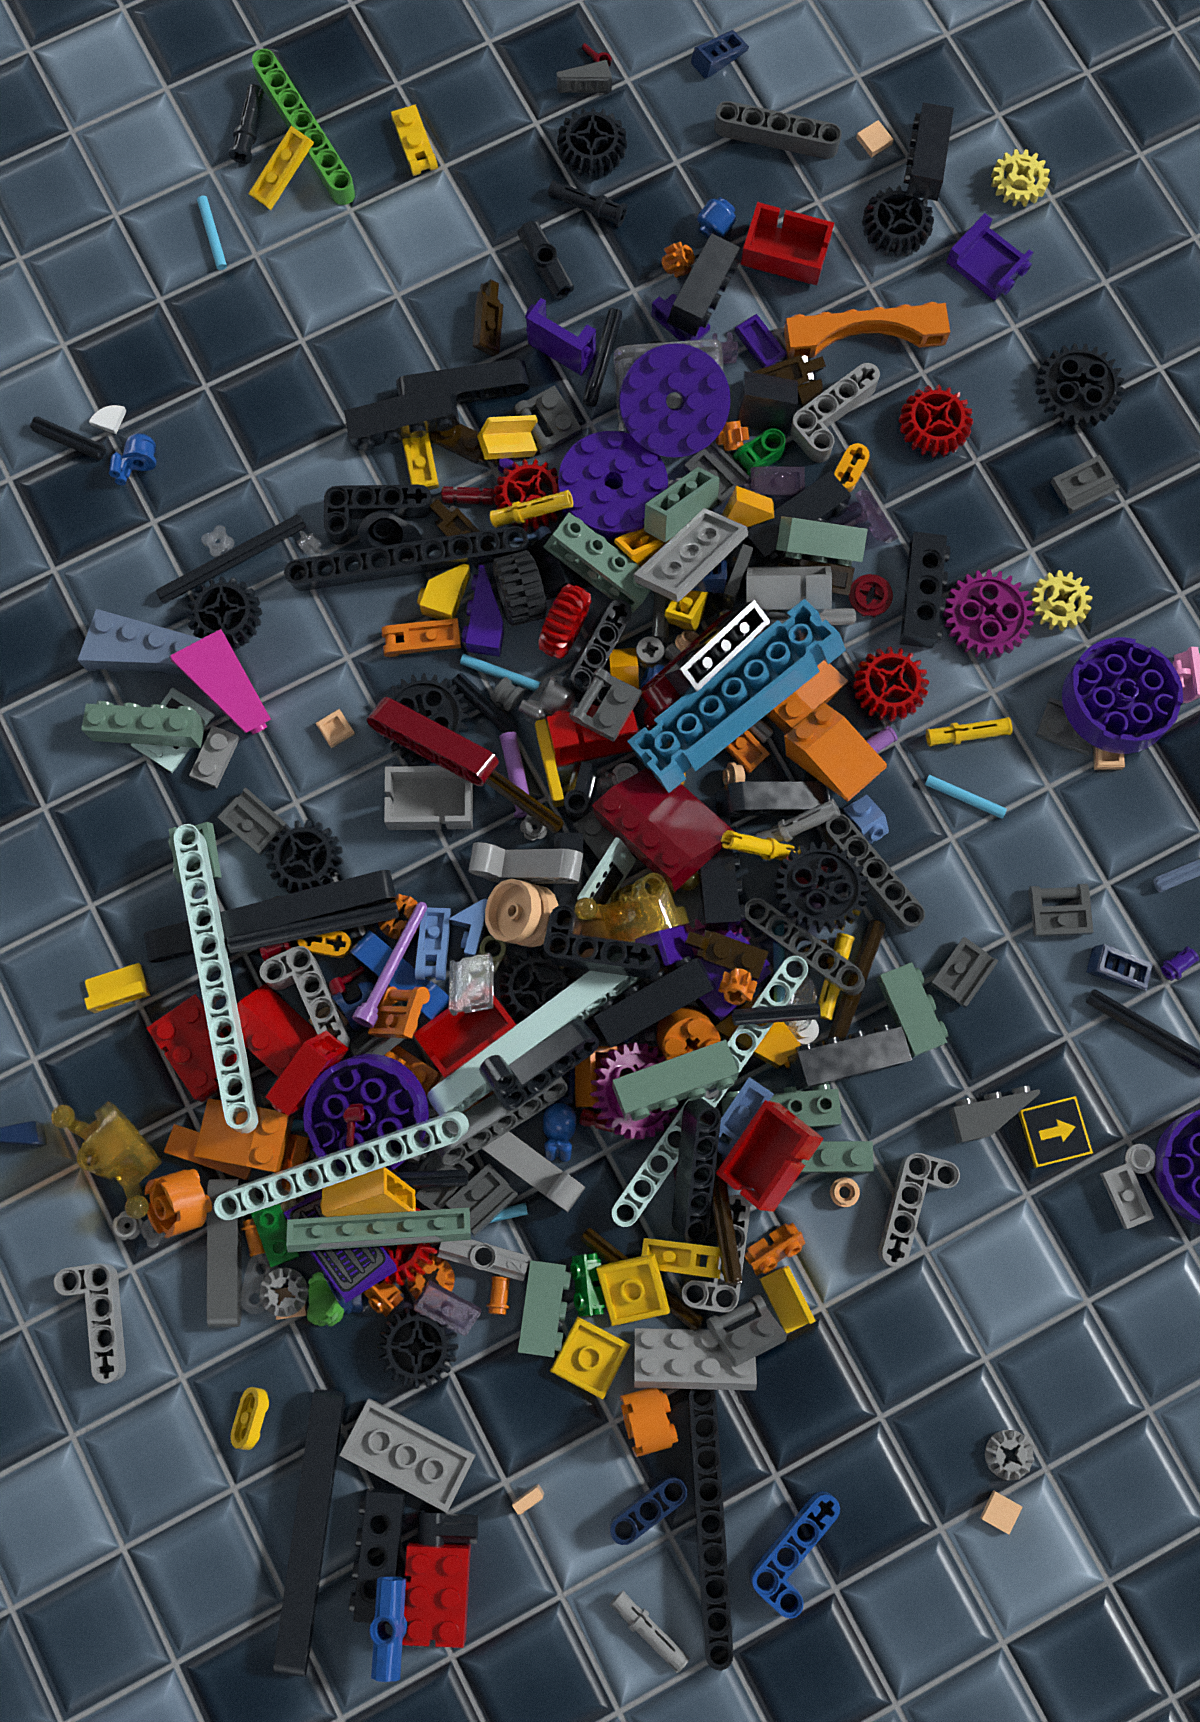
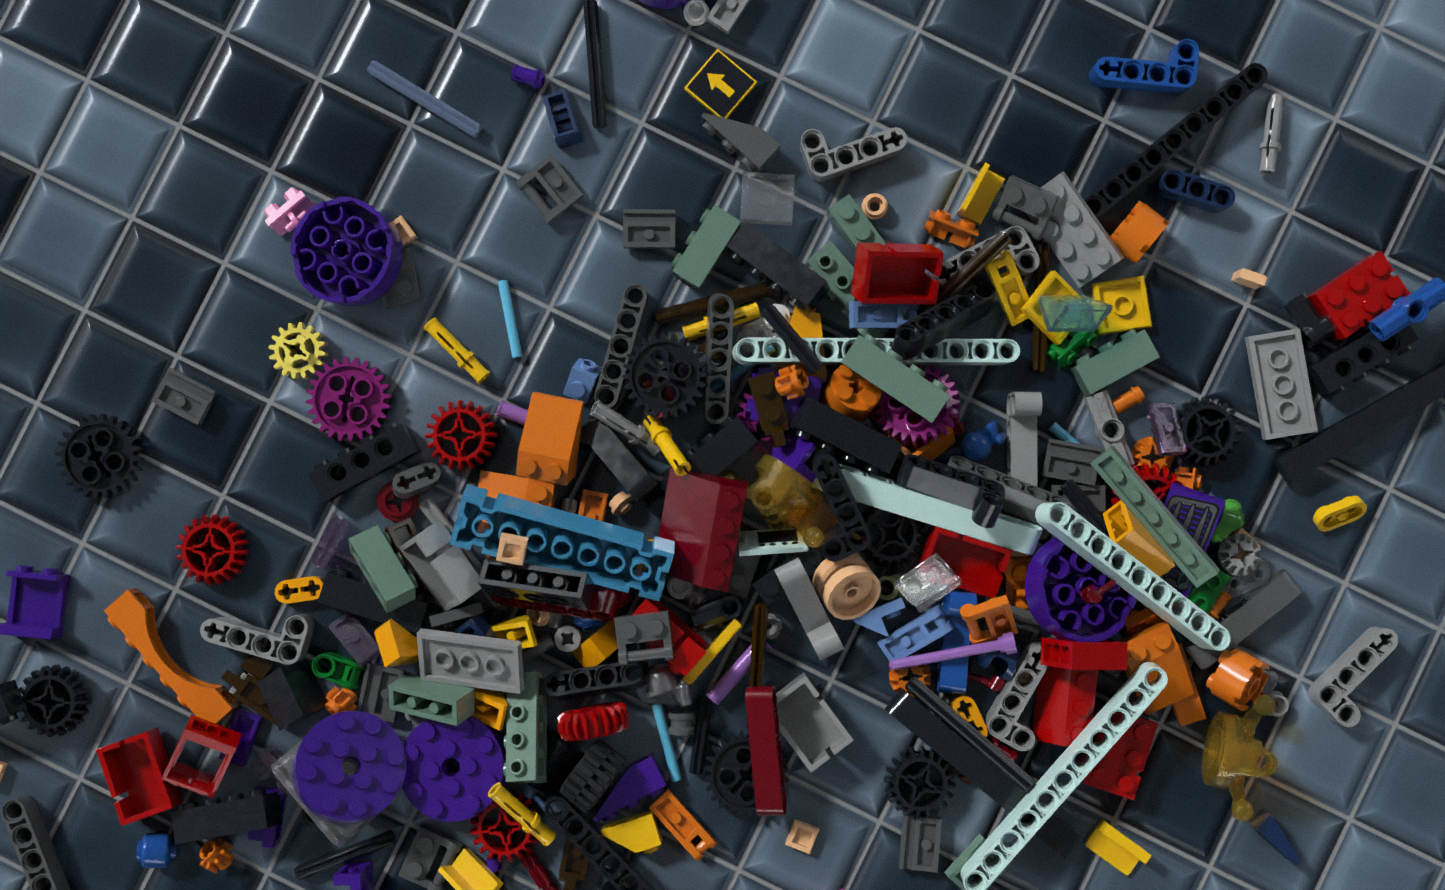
camera: 125 degrees left, 10 degrees up
(618, 1296) = (1072, 312): none -> clear light blue slope
(763, 645) = (512, 549): none -> light nougat tile
(779, 314) = (208, 735): none -> red window
(884, 621) = (414, 474): none -> dark grey beam
(919, 1097) = (767, 198): none -> clear plate

